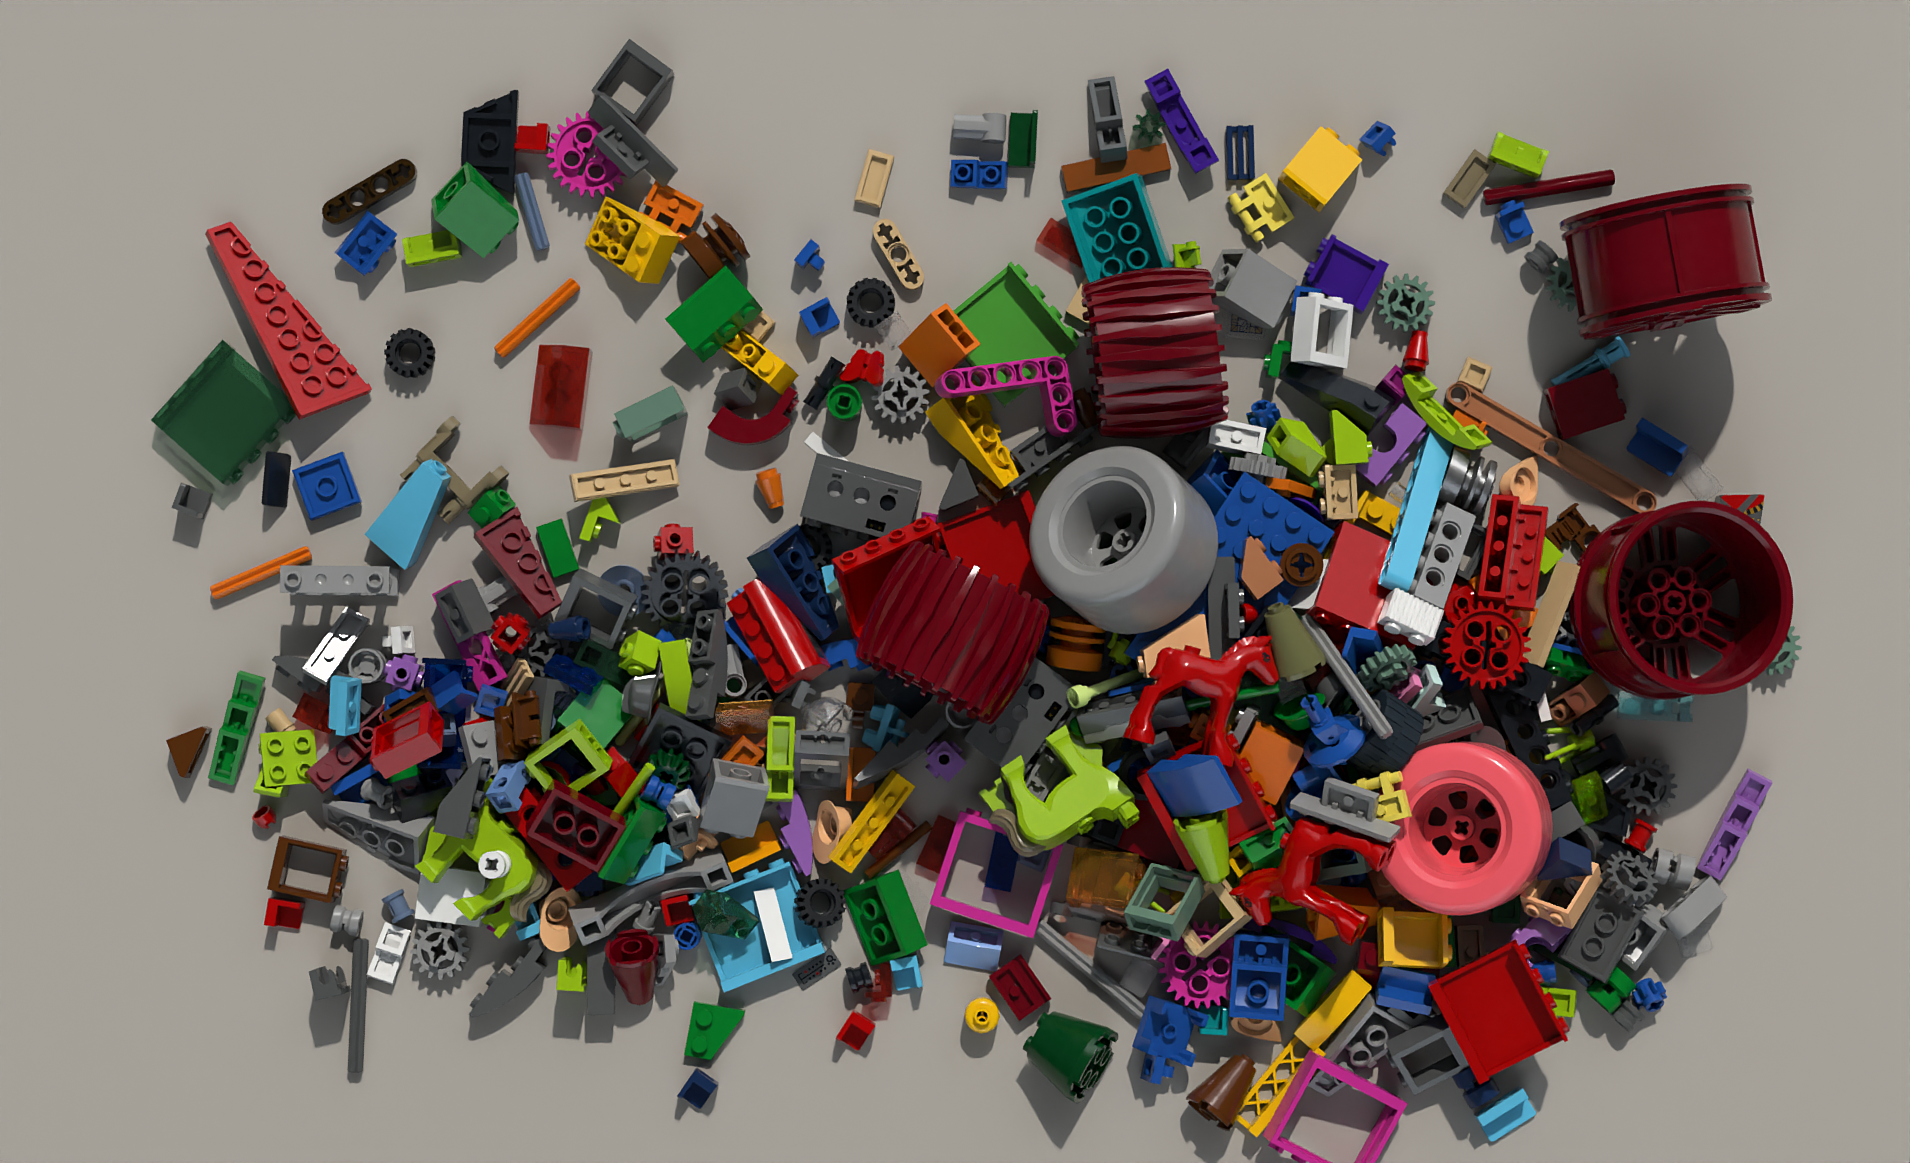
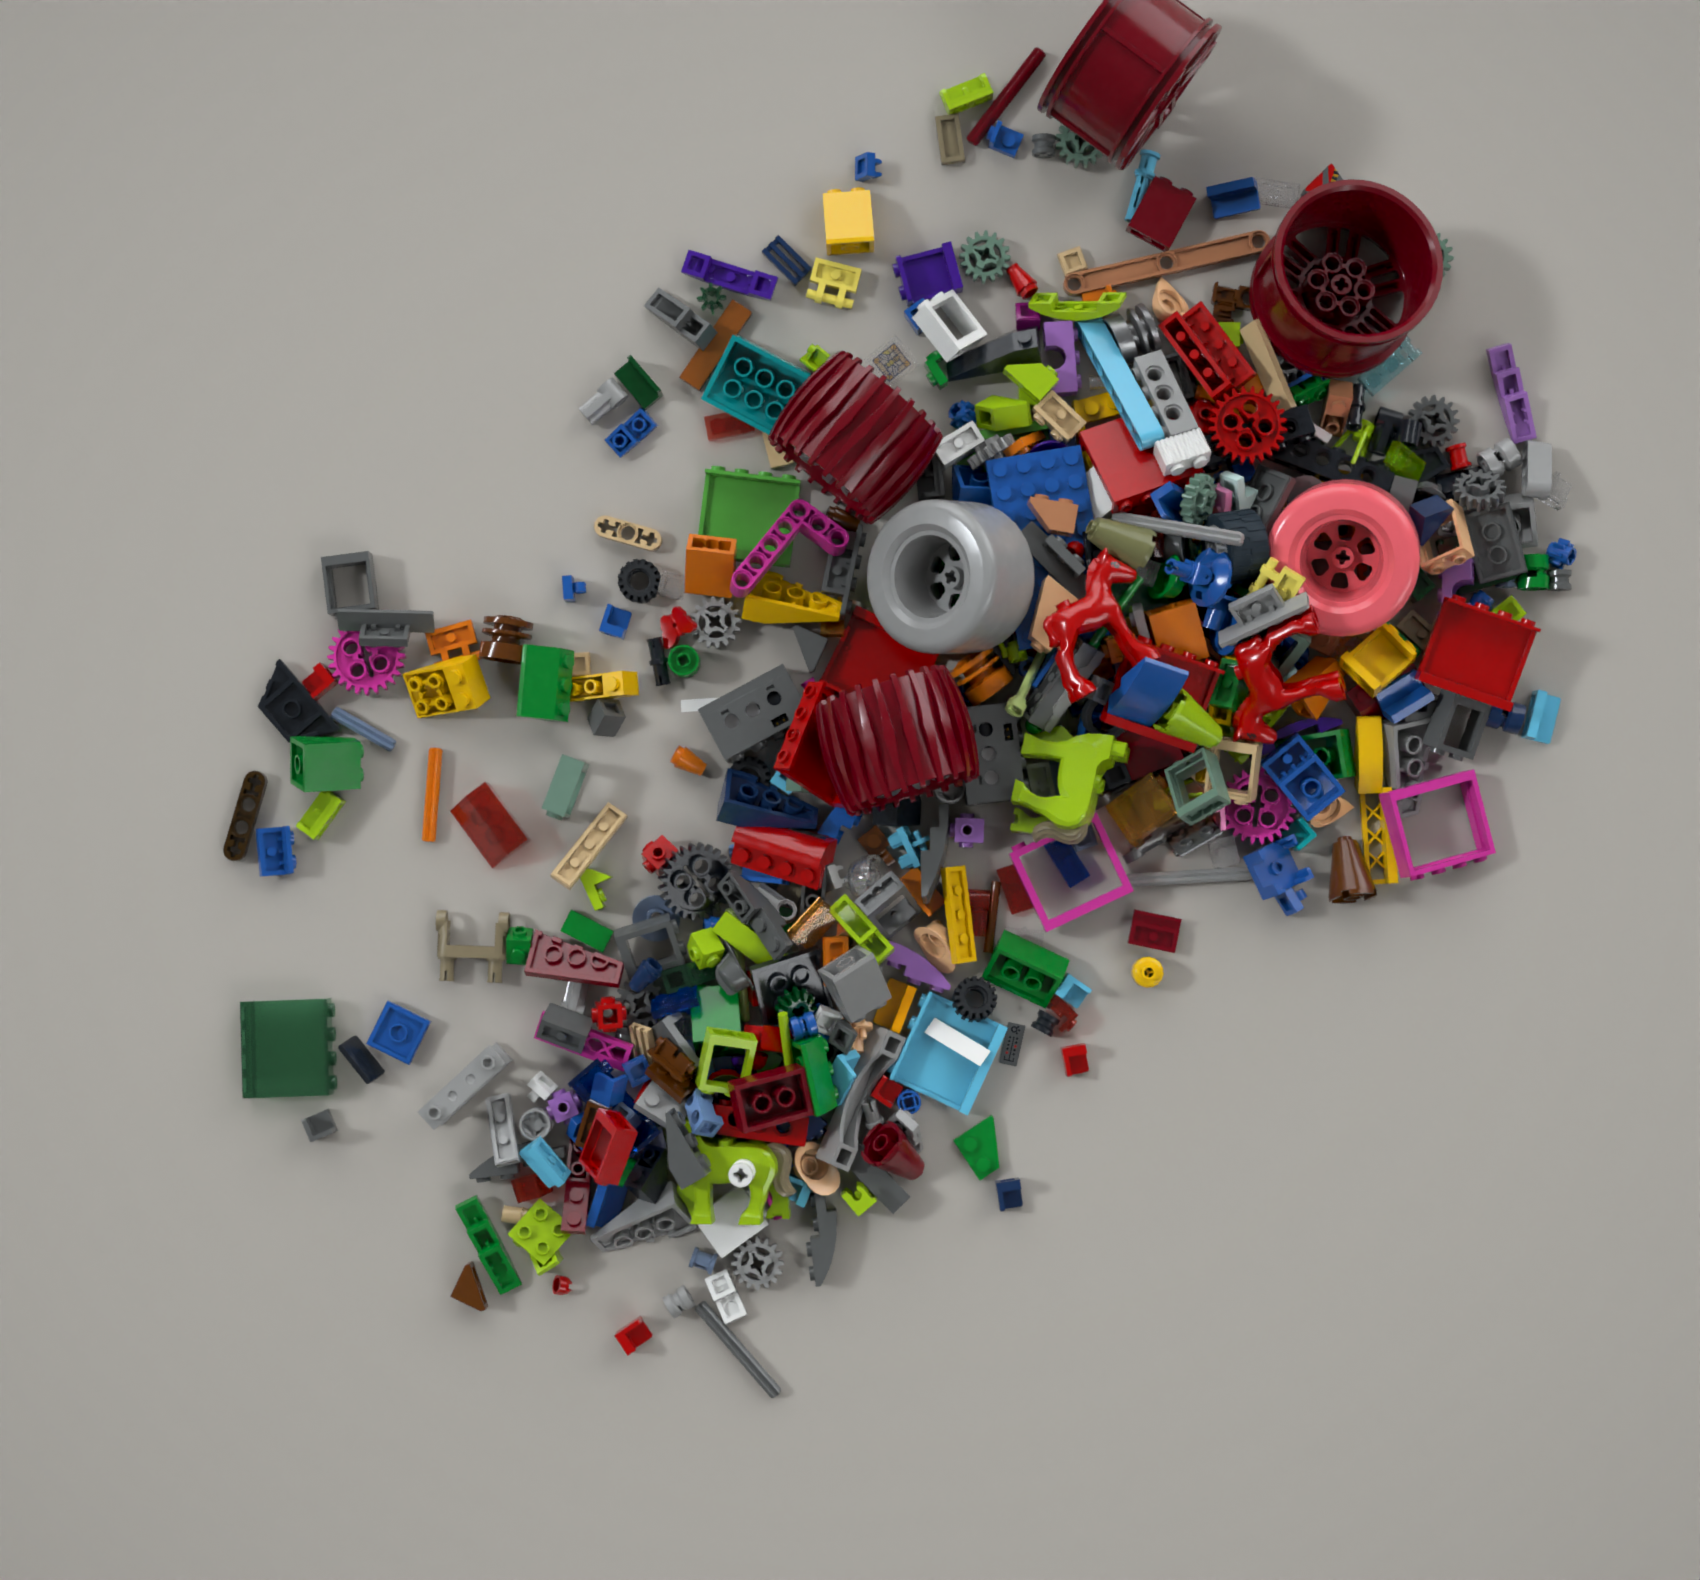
camera: 40 degrees left, 0 degrees up
(260, 573) = (408, 1130): orange axle -> none
(281, 862) = (601, 1305): reddish brown window -> none
(297, 349) = (297, 962): red wing -> none
(325, 982) = (706, 1354): dark grey hinge -> none
(377, 792) = (620, 1199): light grey bush -> none
(398, 341) = (356, 895): black tyre -> none
(409, 516) = (471, 1002): medium azure slope -> none
(723, 915) = (920, 1066): clear green slope -> none
(755, 431) = (643, 735): dark red arch -> none
(874, 178) = (565, 499): tan tile -> none
(973, 946) = (1099, 933): light blue panel -> none
(1070, 1052) = (1227, 941): dark green cone -> none
(1251, 287) = (877, 338): light grey slope -> none
(1310, 556) = (1079, 474): reddish brown gear -> none

